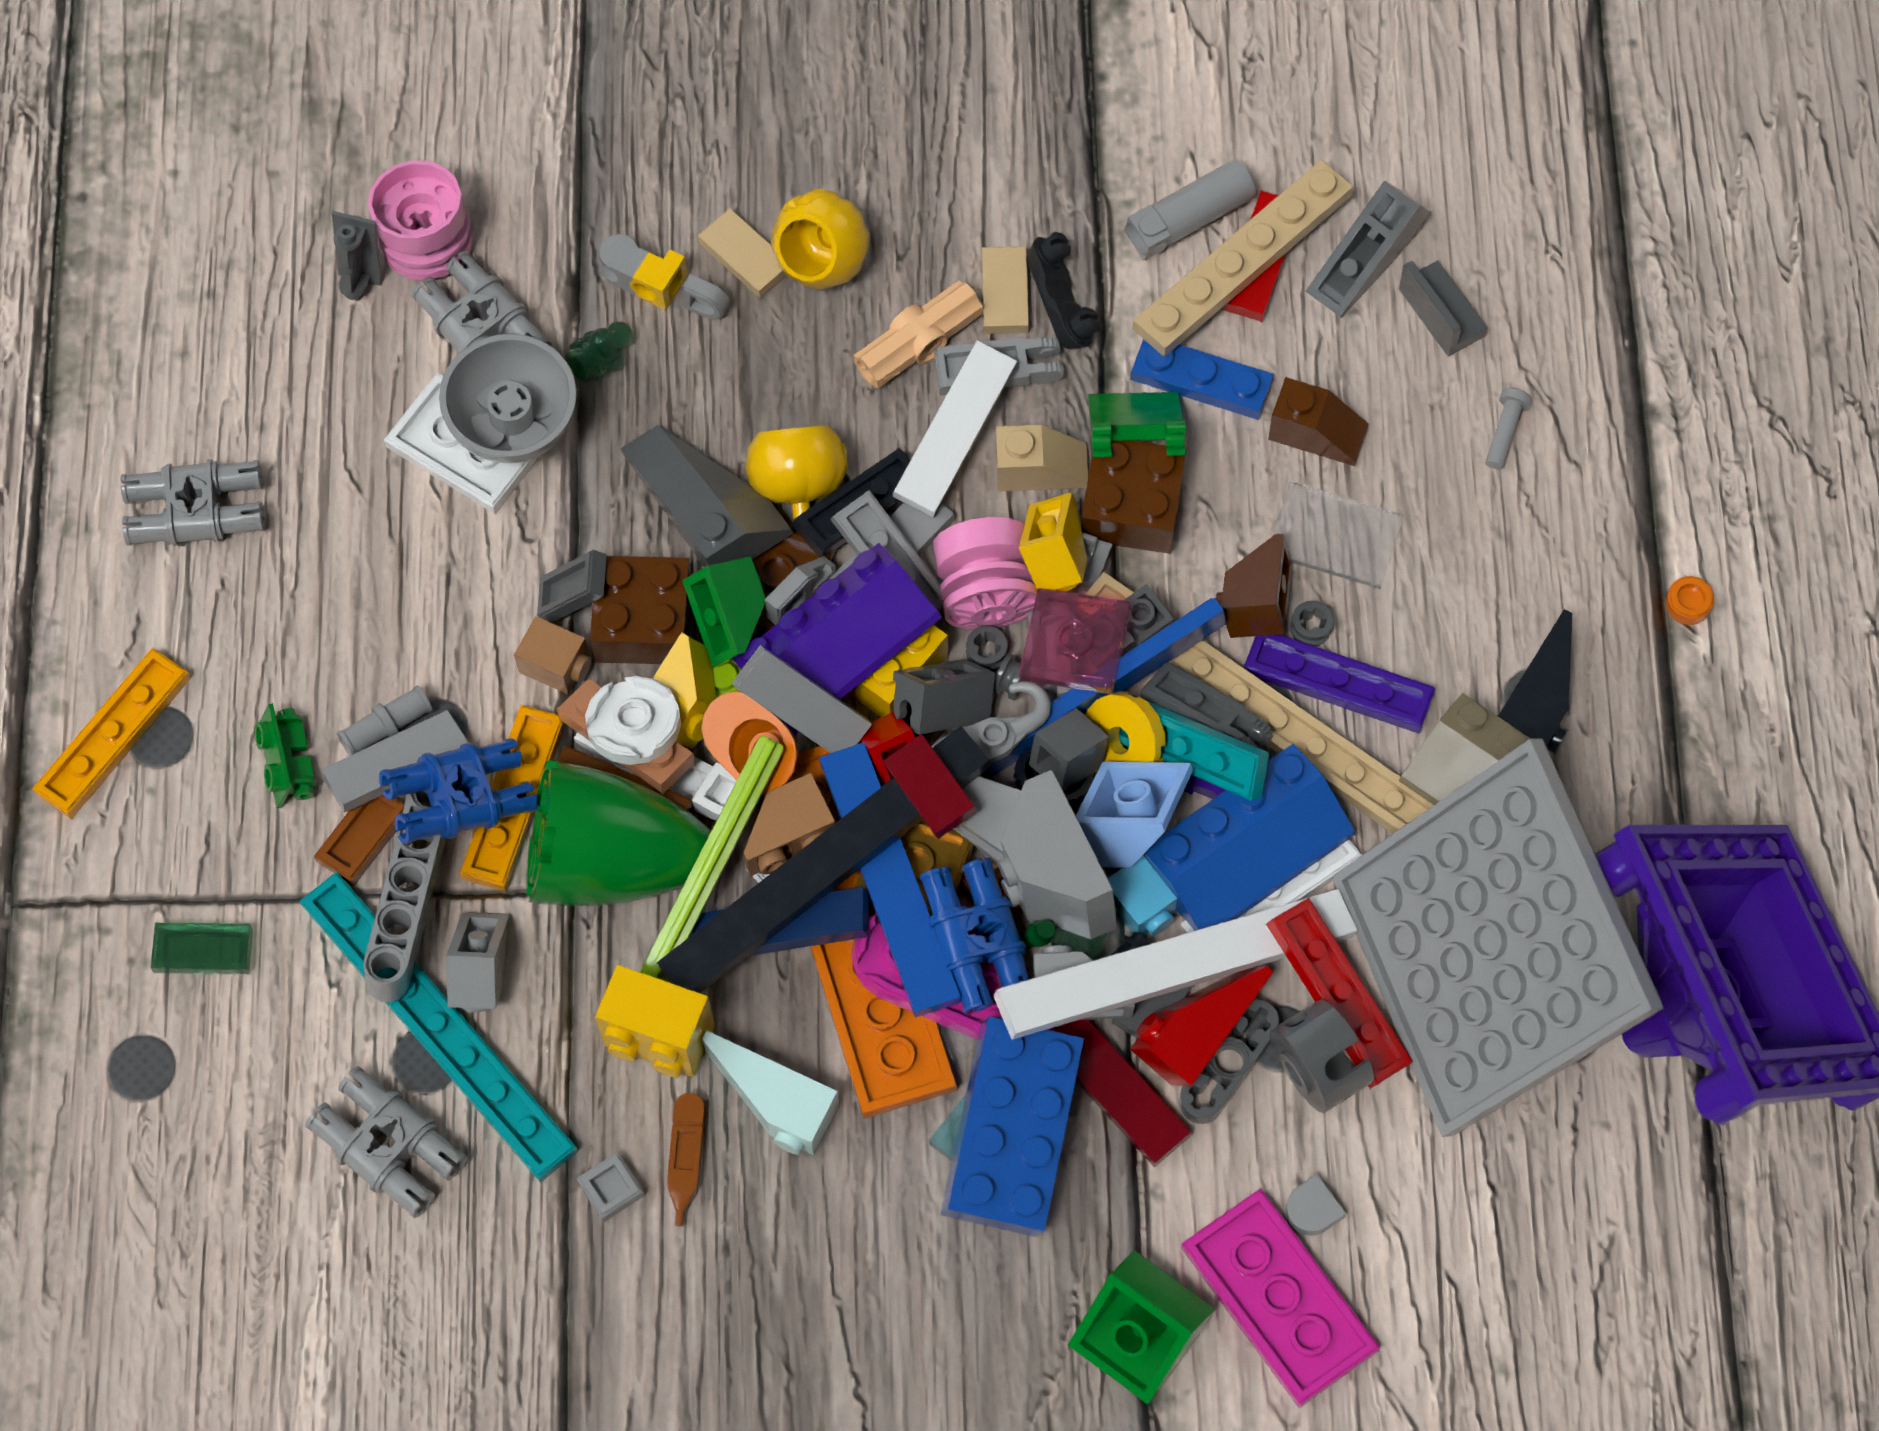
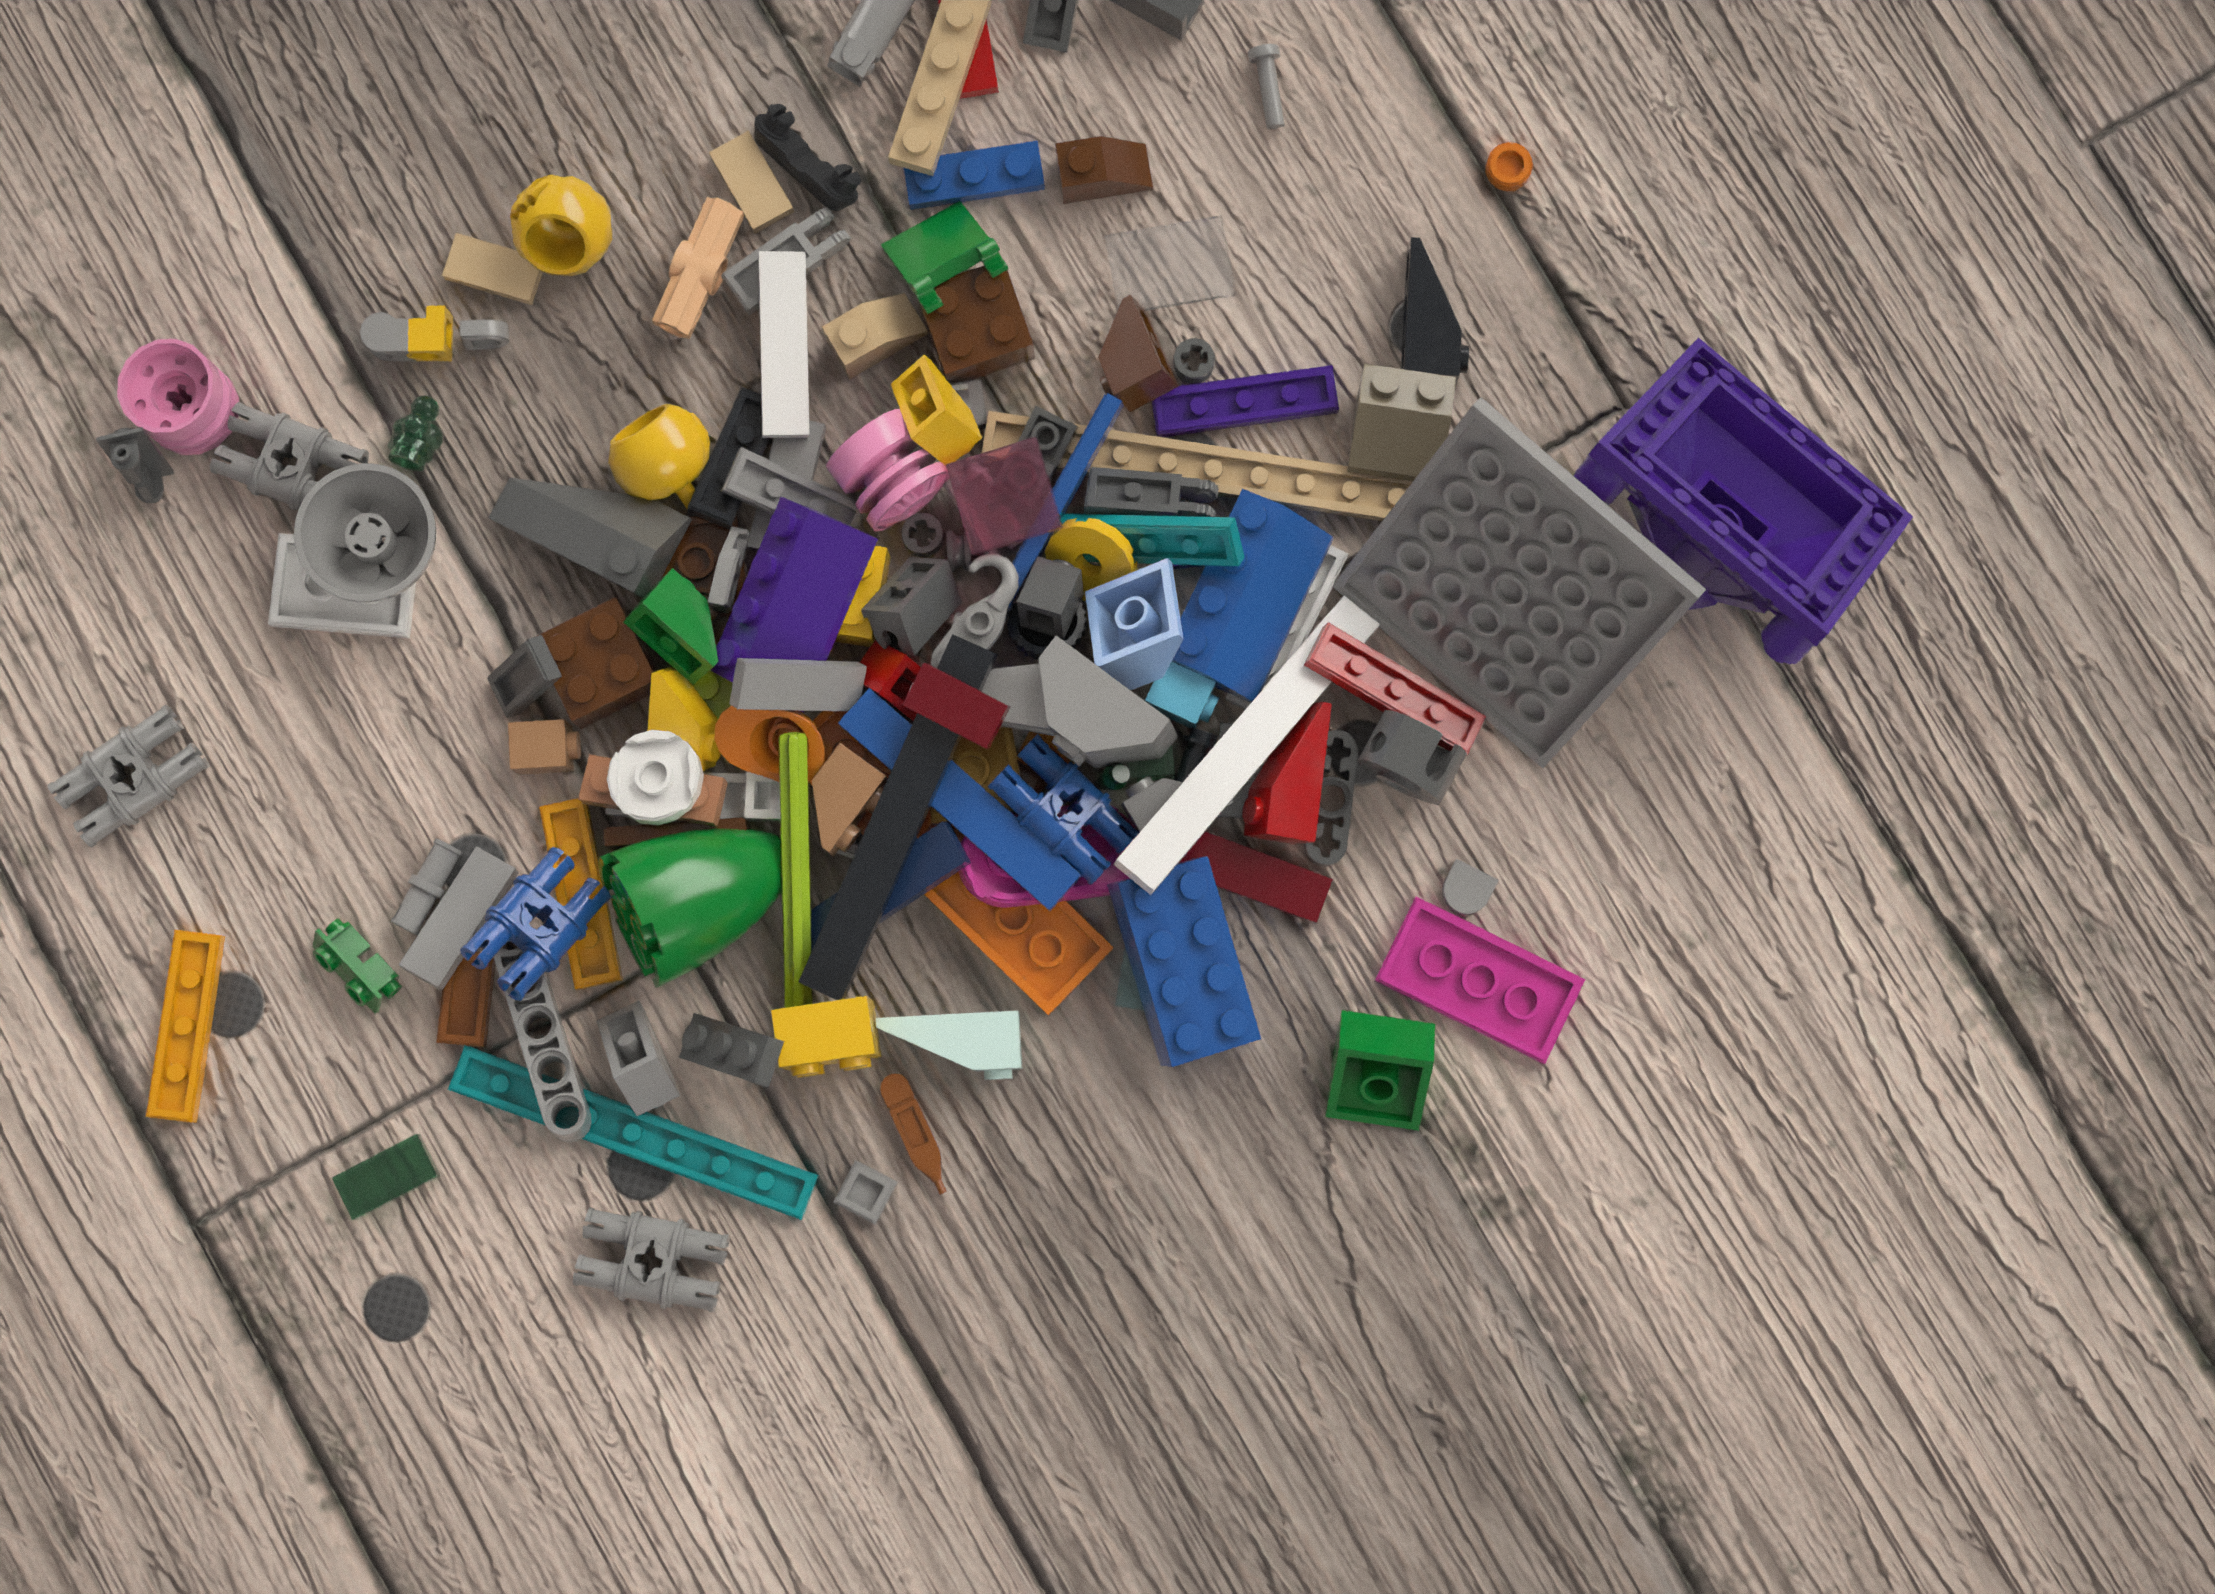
camera: 30 degrees left, 15 degrees up
(562, 987) = (731, 1049): none -> dark grey plate

